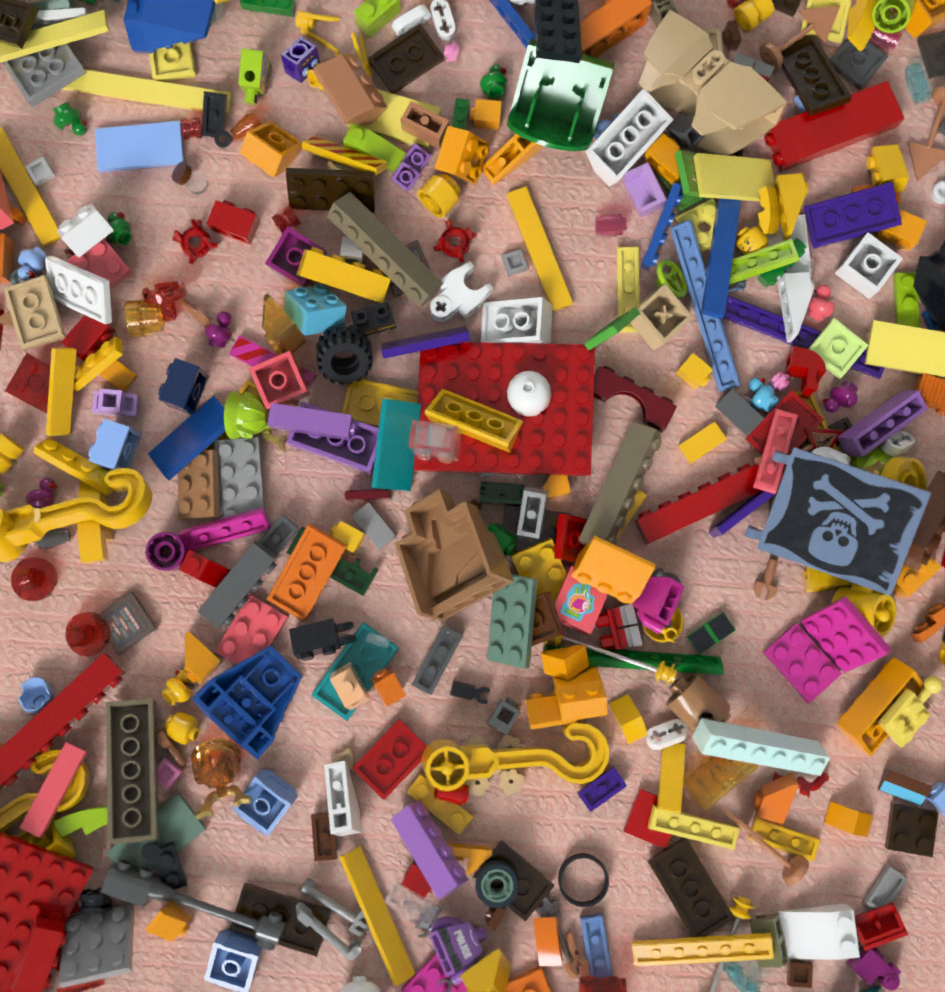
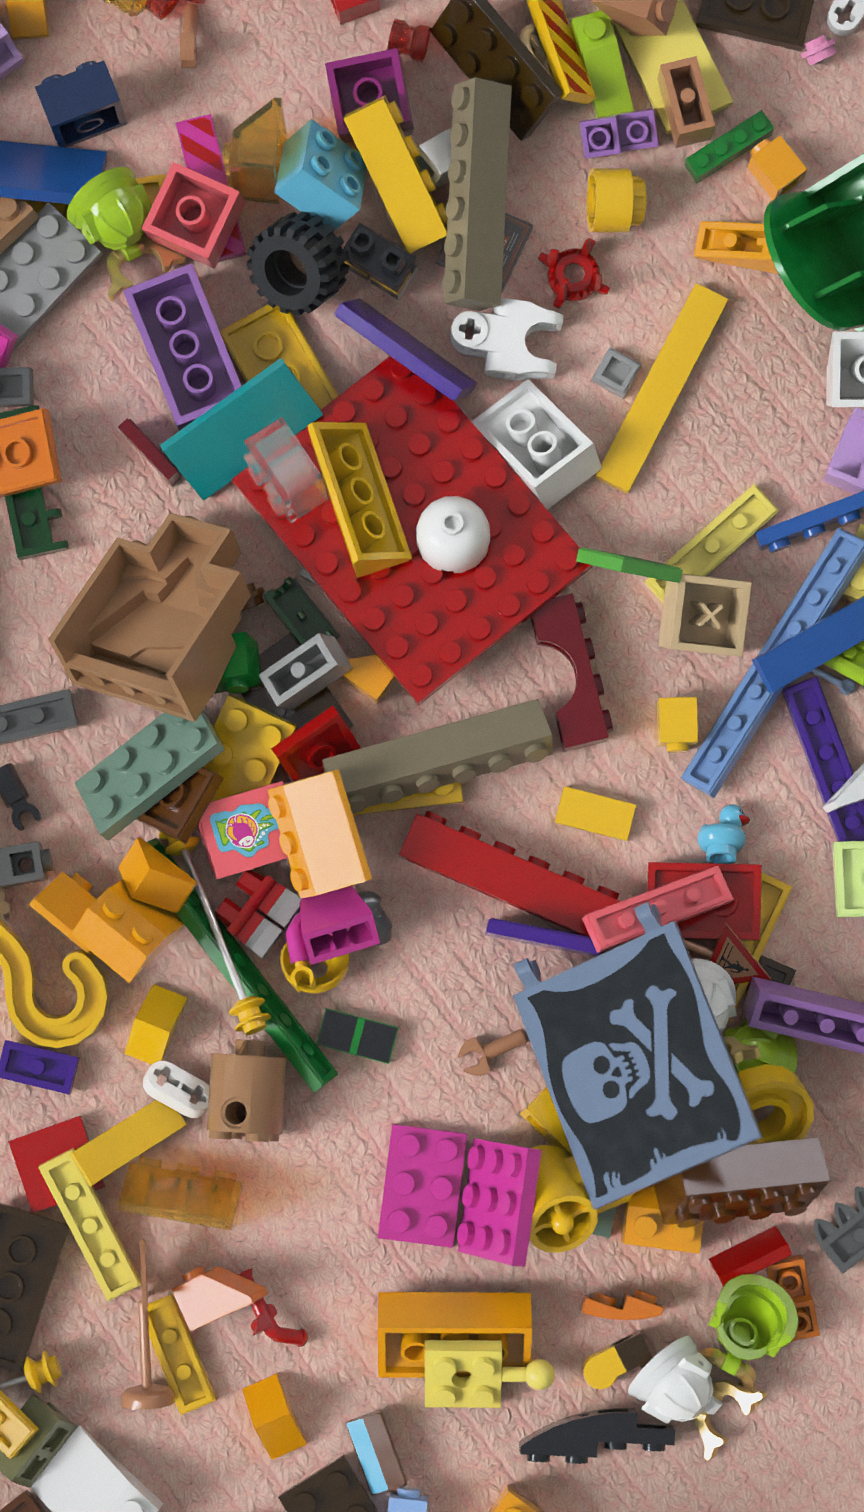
camera: 50 degrees right, 0 degrees up
(219, 334) = (189, 88): magenta animal -> none
(311, 421) = (173, 297): medium lavender brick -> none
(348, 535) = (76, 473): yellow brick -> none
(373, 526) = (118, 494): light grey tile -> none
(462, 155) = (689, 183): light orange slope -> none
(494, 82) = (827, 139): green animal -> none
(610, 225) = (773, 449): clear pink brick -> none
(670, 278) = (768, 588): lime piece -> none
(739, 412) = (675, 824): dark grey hinge -> none
(760, 747) = (260, 1214): light aqua brick -> none
(780, 381) = (763, 843): bright pink plate -> none
(806, 365) = (814, 860): red brick -> none
(841, 395) = (817, 939): magenta animal -> none
(898, 443) = (815, 1062): white beam -> none

